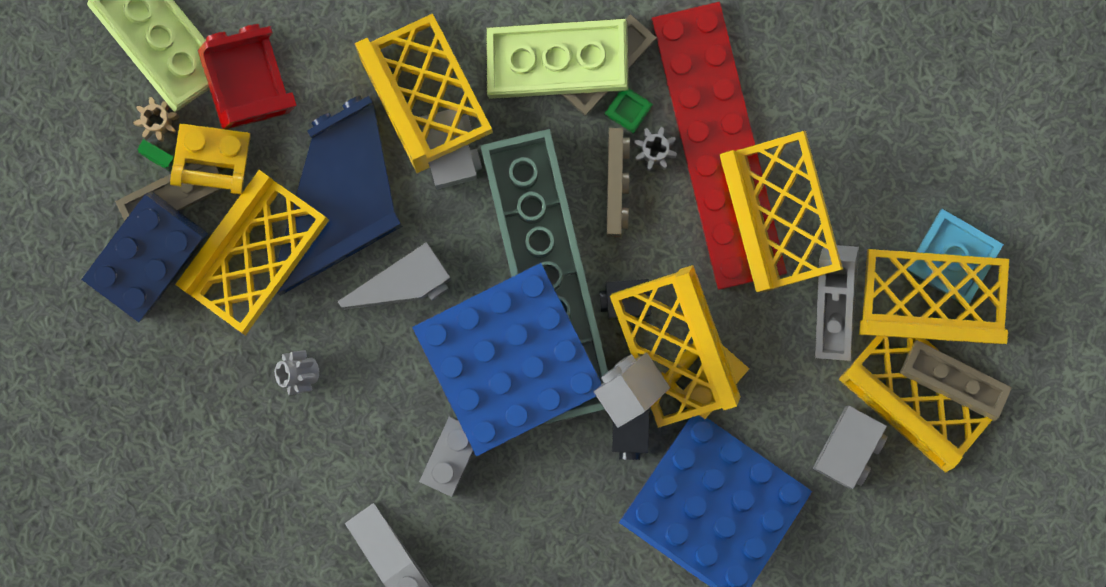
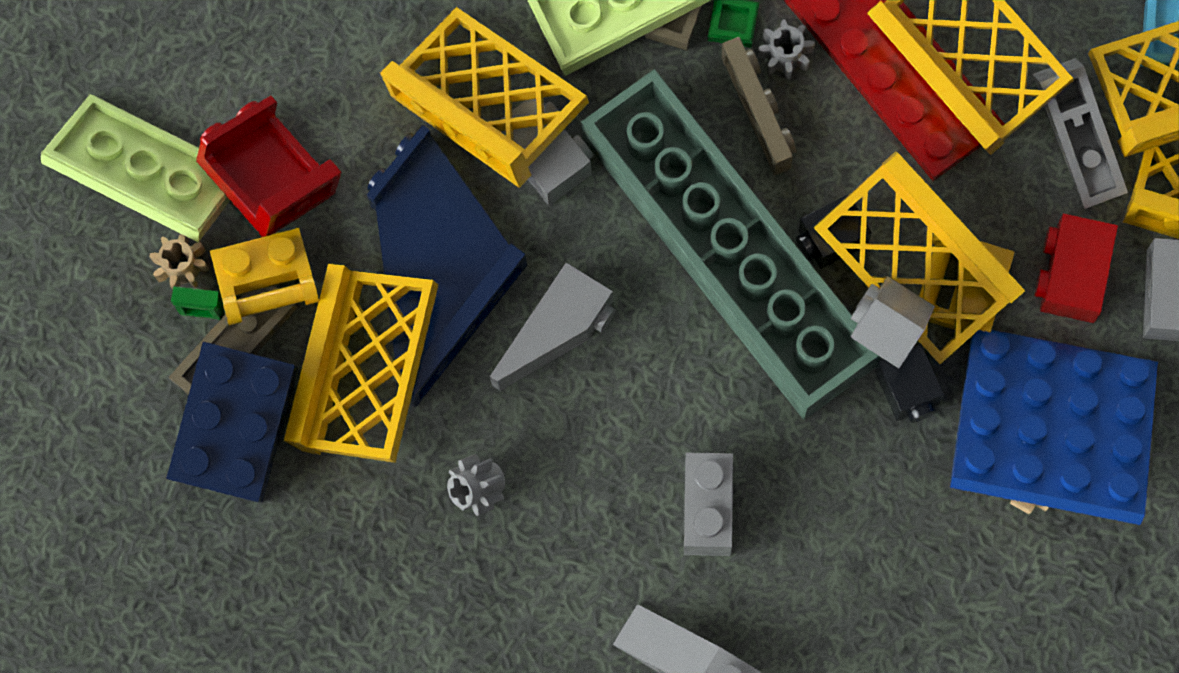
camera: 20 degrees left, 10 degrees down
(508, 359) = (728, 351): blue plate -> none
(787, 400) = (1077, 267): none -> red brick

